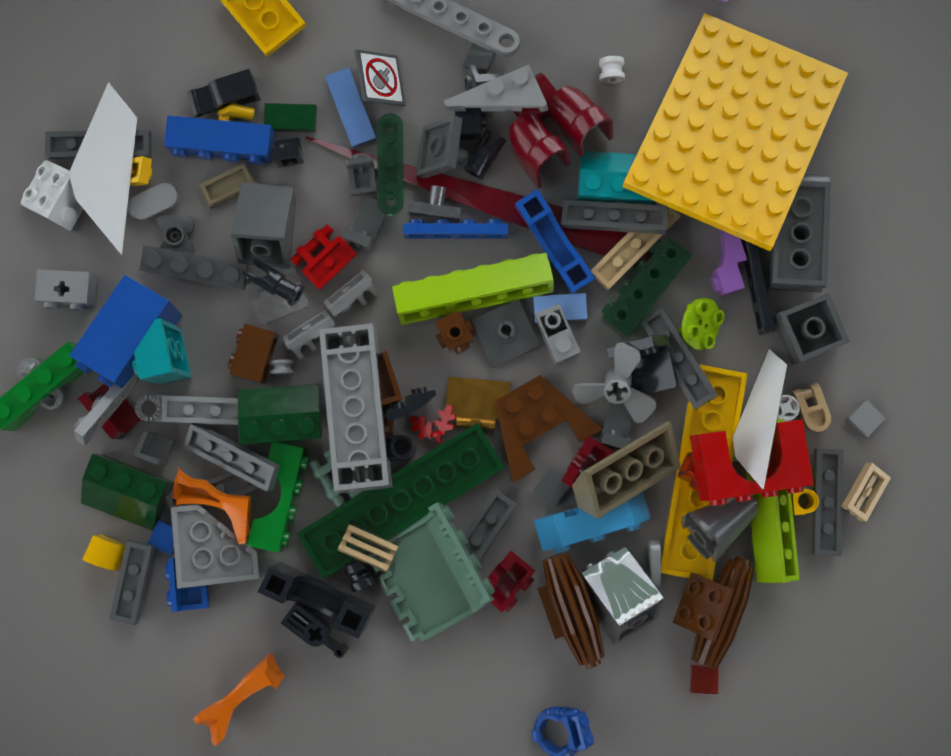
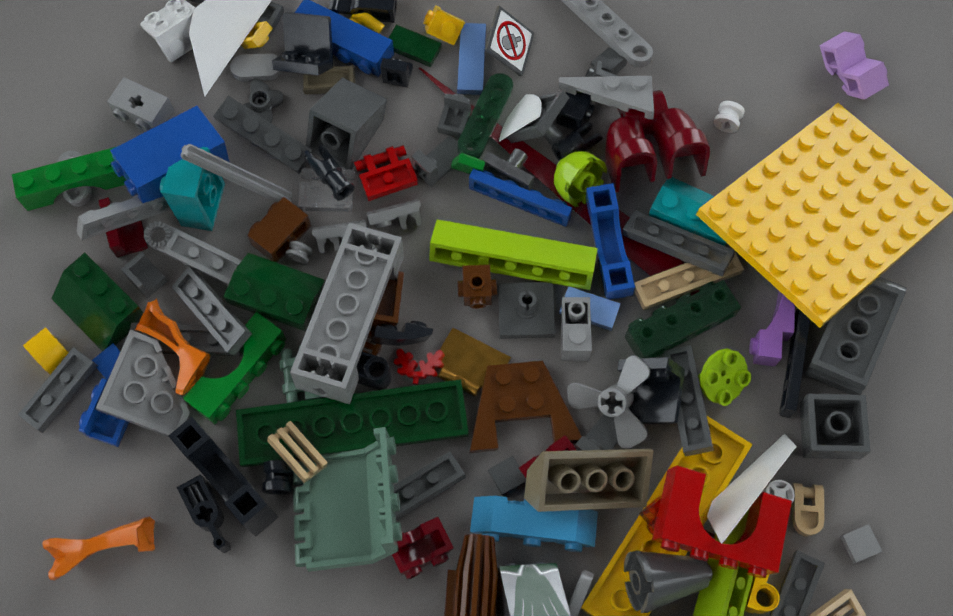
camera: 20 degrees right, 15 degrees down
(193, 165) = (306, 44): none -> black bracket
(194, 328) = (234, 173): none -> light grey axle
(309, 87) = (443, 25): none -> yellow bracket
(395, 219) = (467, 163): none -> green tile
(424, 149) = (524, 113): none -> white sticker
(500, 190) = (577, 173): none -> lime cylinder

